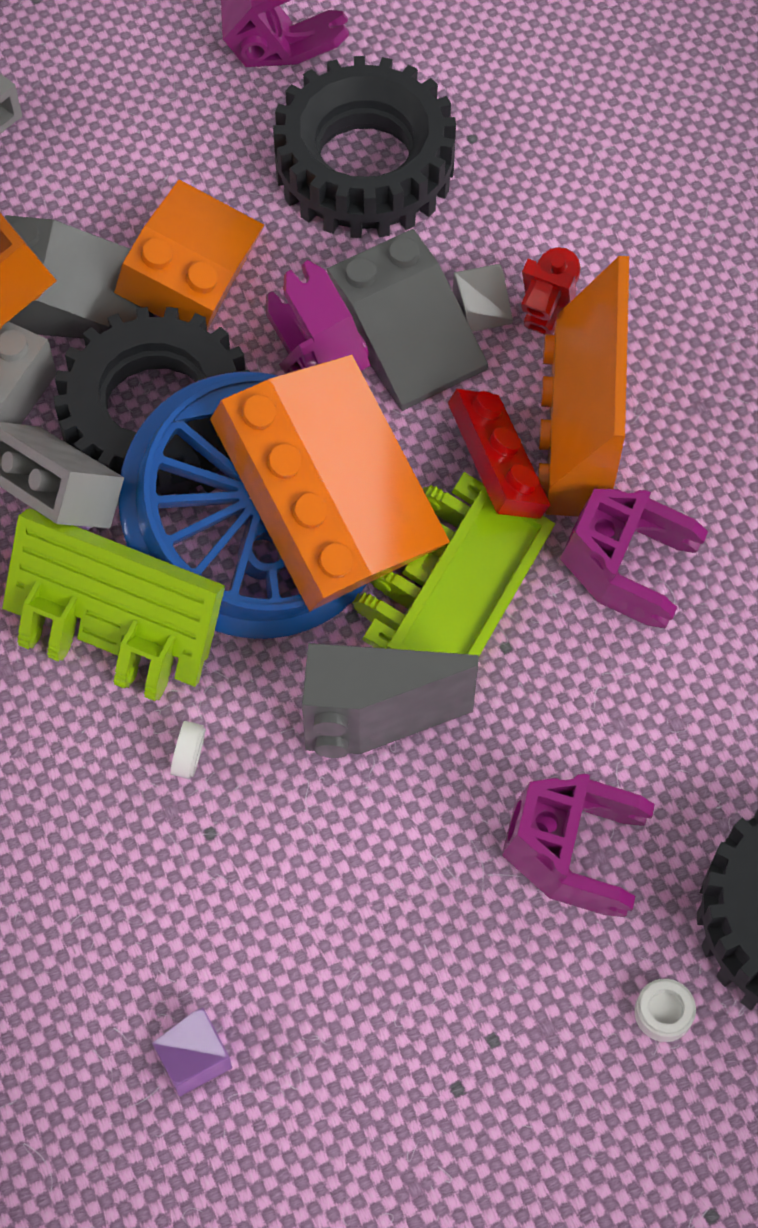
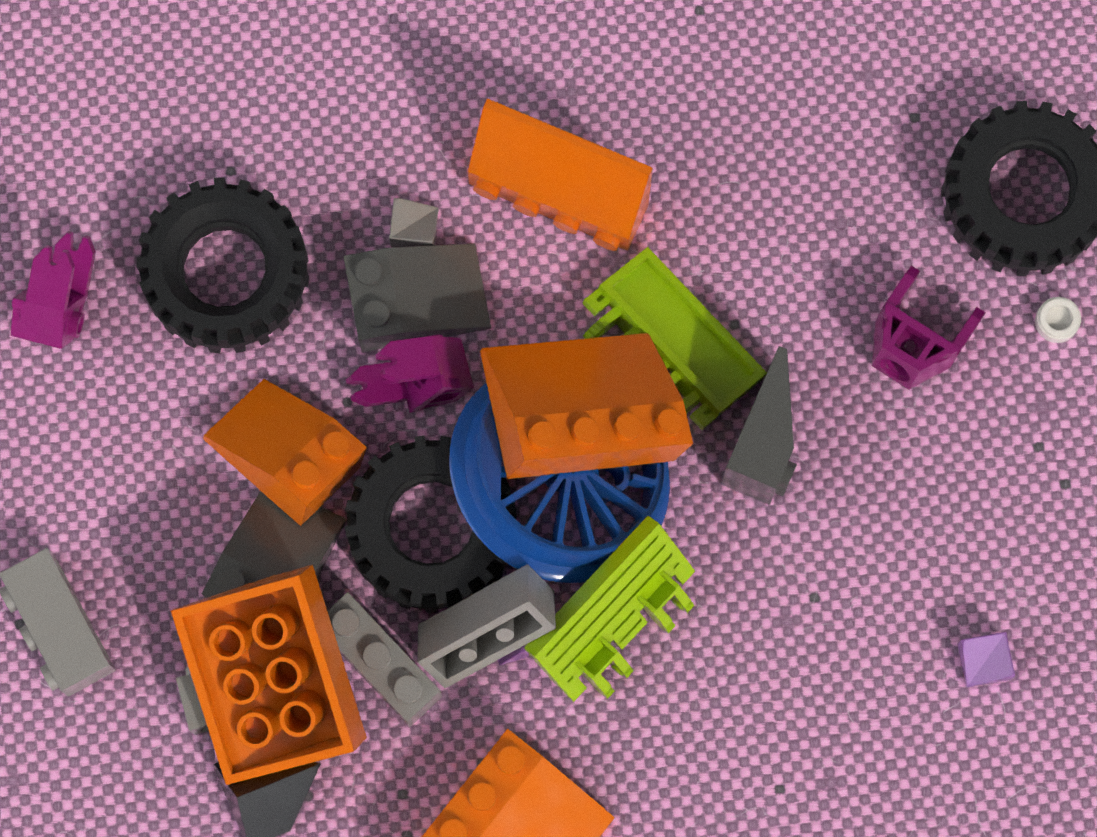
camera: 70 degrees left, 15 degrees up
(188, 750) = (749, 591): white tile -> none
(498, 454) = (574, 267): red plate -> none
(549, 288) = (438, 166): red hips -> none
(602, 540) = (685, 216): magenta piece -> none

